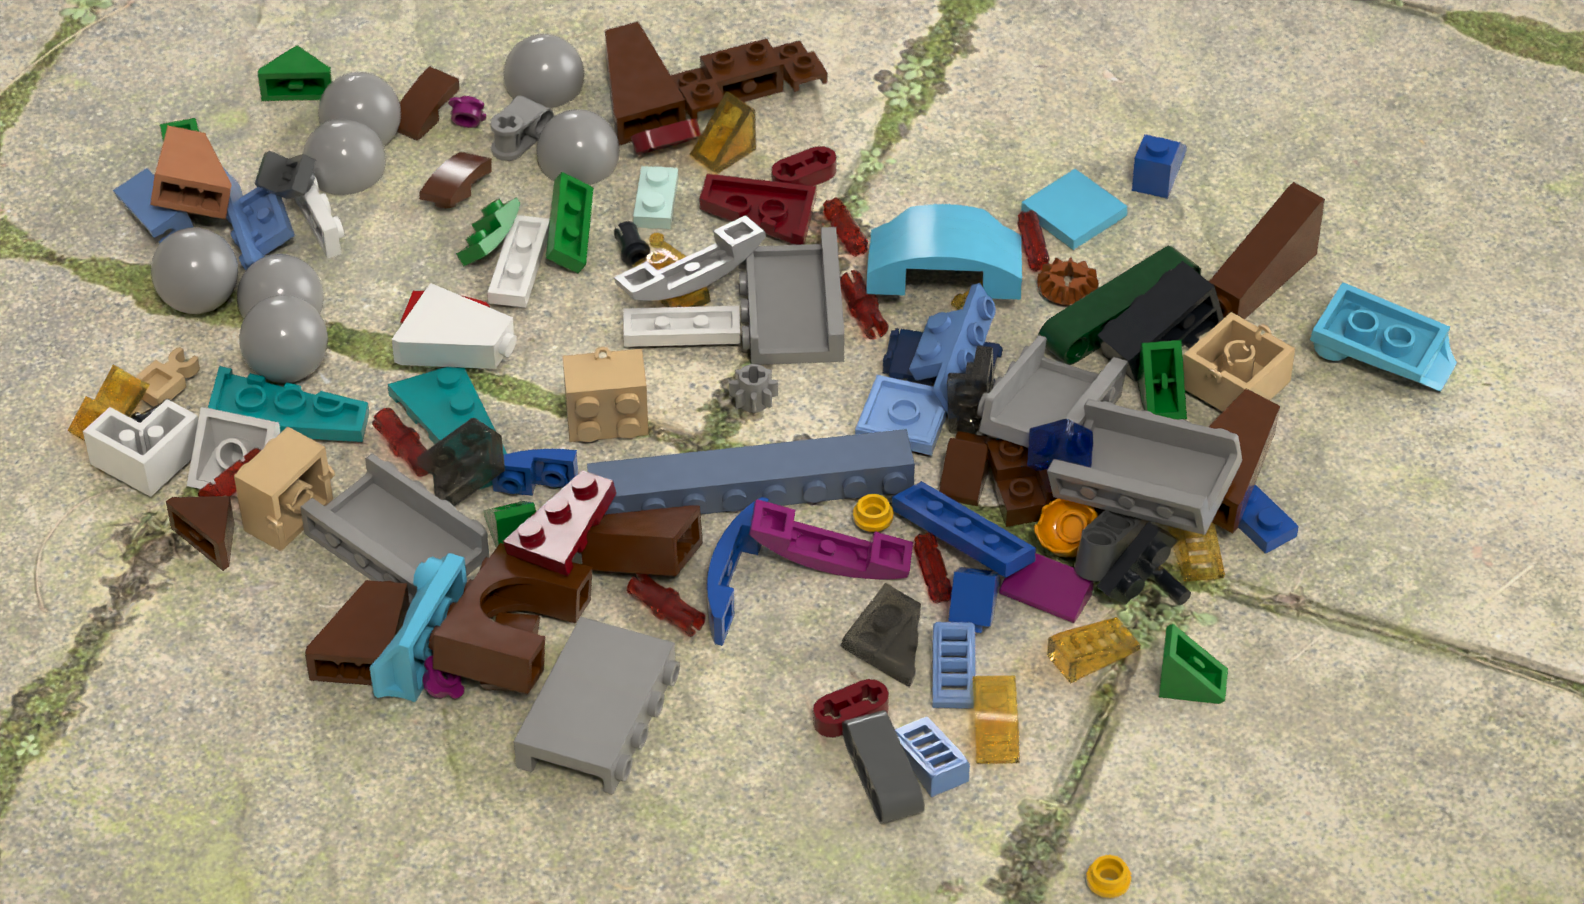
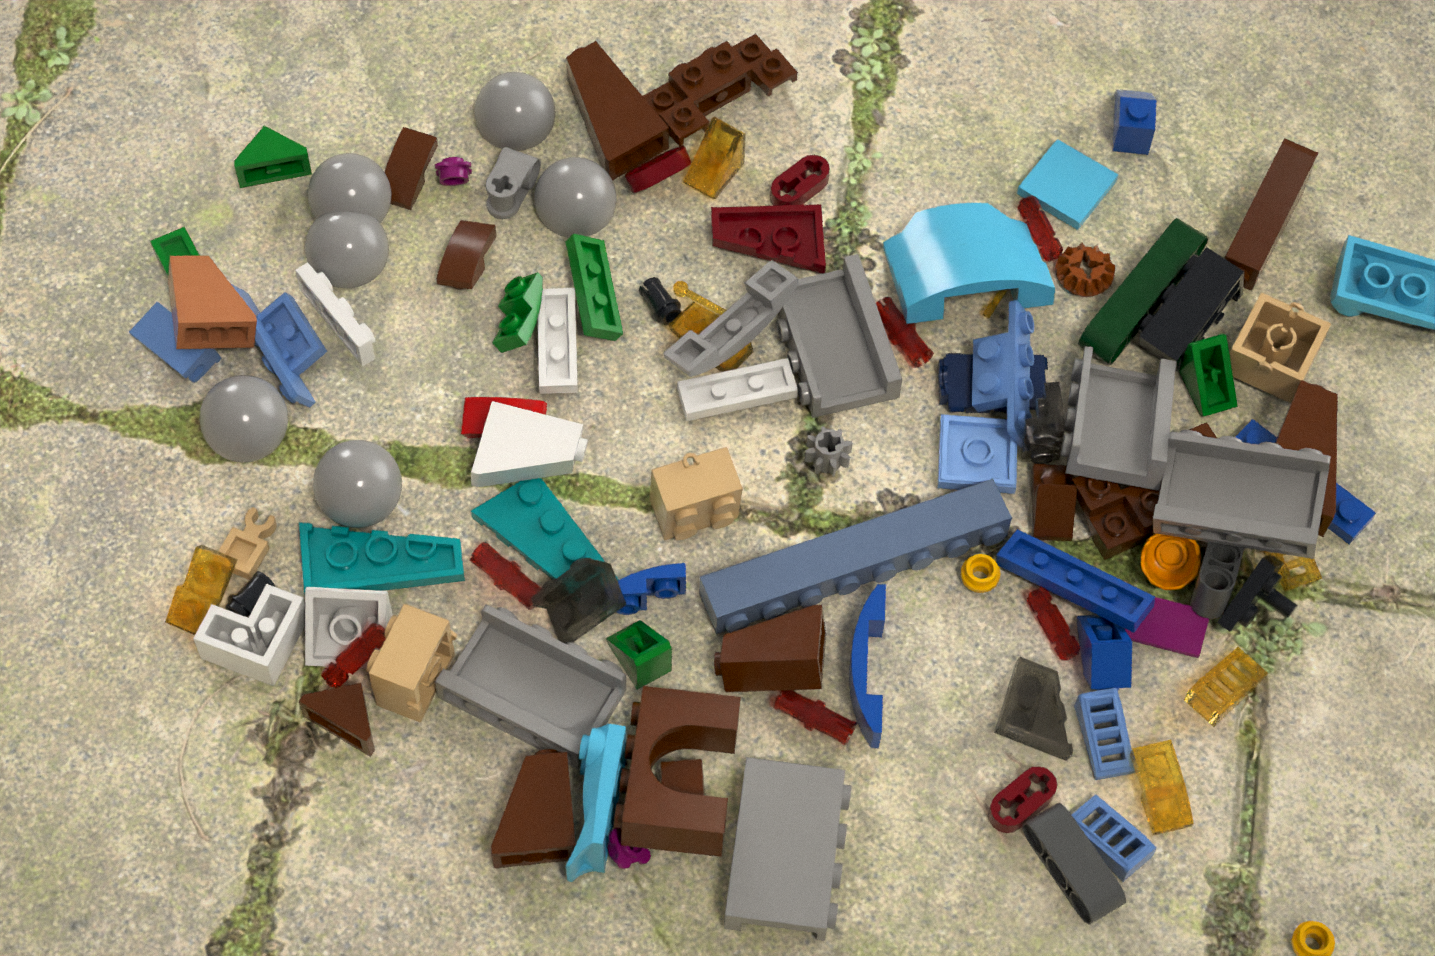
camera: 15 degrees left, 15 degrees up
(279, 276) = (330, 416): light grey piece -> none
(285, 175) = (305, 291): dark grey bracket -> none
(562, 523) = (702, 659): wing -> none
(656, 197) = (666, 239): light aqua plate -> none
(827, 550) = (955, 624): magenta slope -> none
(846, 226) = (858, 243): clear red axle -> none
(1060, 441) = (1154, 485): clear blue bracket -> none
(1190, 670) = (1323, 698): green slope -> none

